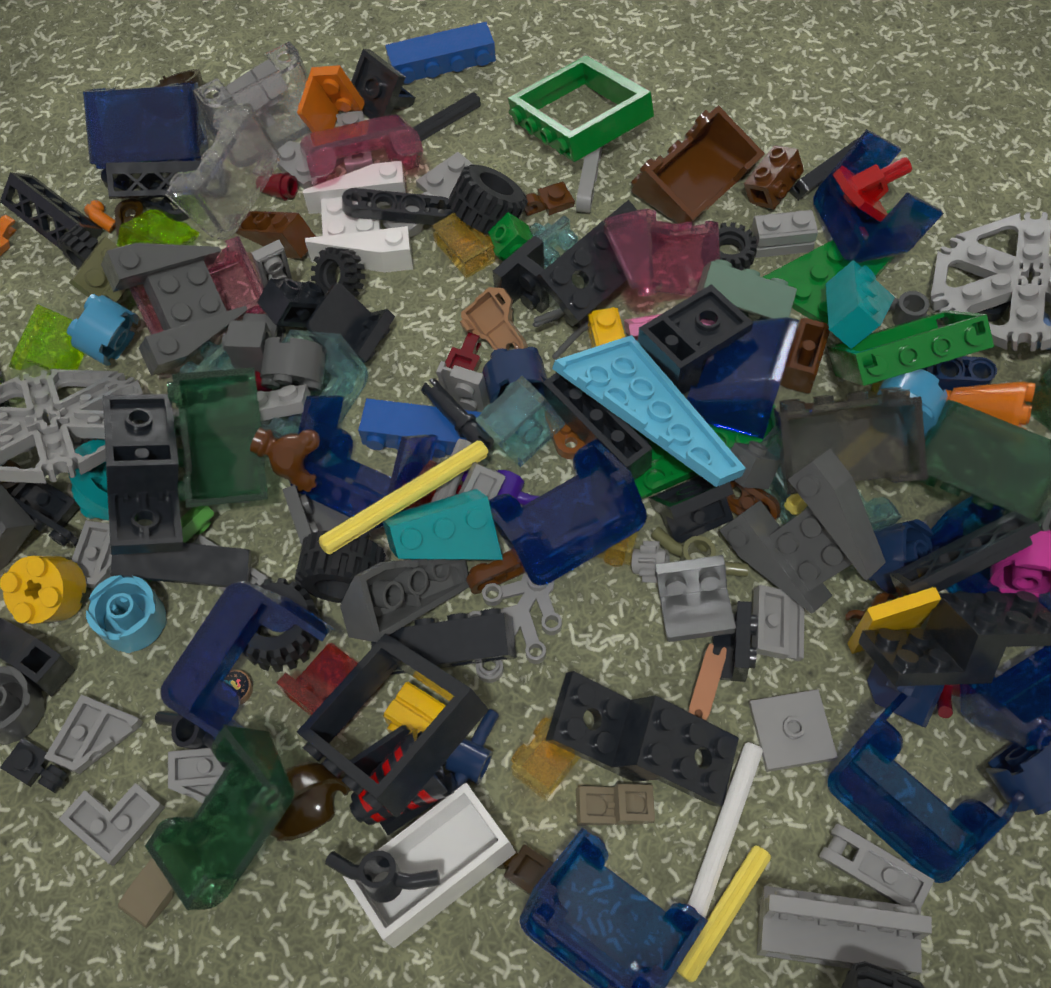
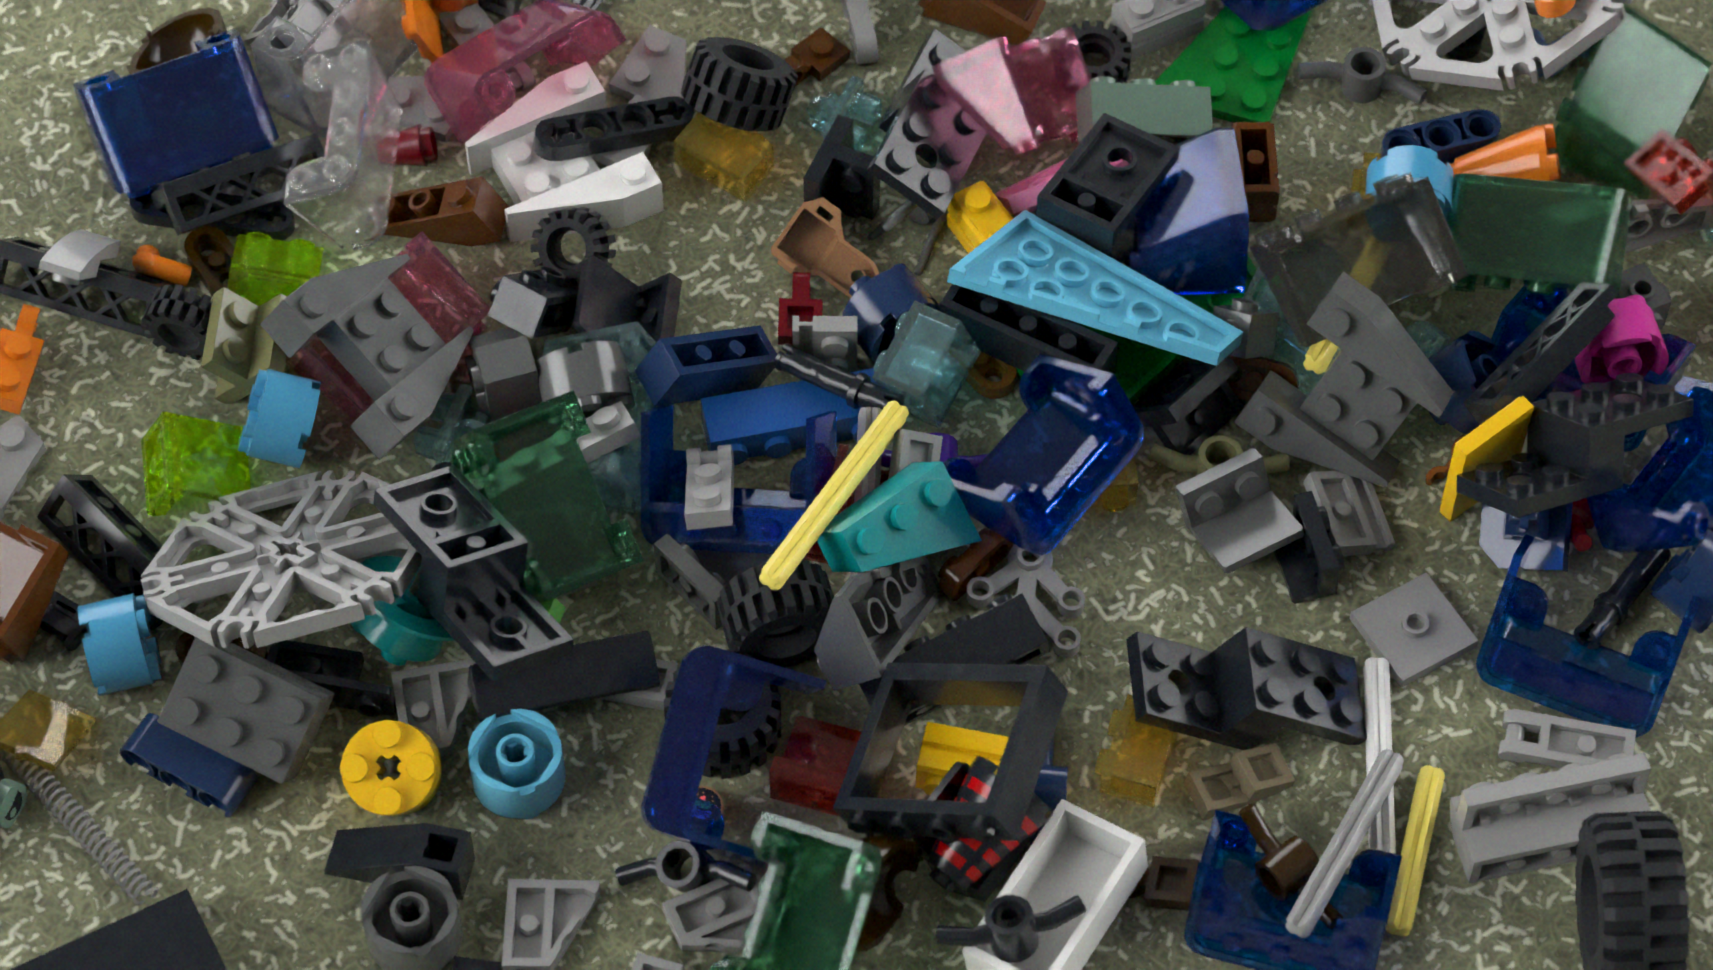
camera: 25 degrees left, 5 degrees down
(45, 193) = (78, 256): none -> light grey slope
(271, 263) = (493, 259): light grey tile -> none
(288, 455) = (644, 495): reddish brown animal -> none
(335, 462) = (709, 488): none -> light grey plate
(376, 377) = (706, 365): none -> dark blue brick
(509, 236) = (796, 128): green brick -> none
(619, 895) = (1285, 865): none -> dark brown piece
(645, 559) = (1159, 488): light grey gear -> none
(665, 895) = (1344, 843): none -> light grey axle
(707, 683) = (1292, 602): nougat piece -> none
(856, 303) = (1295, 85): teal wedge -> none
(911, 347) = (1382, 122): green window -> none
(954, 765) = (1612, 606): none -> black pin

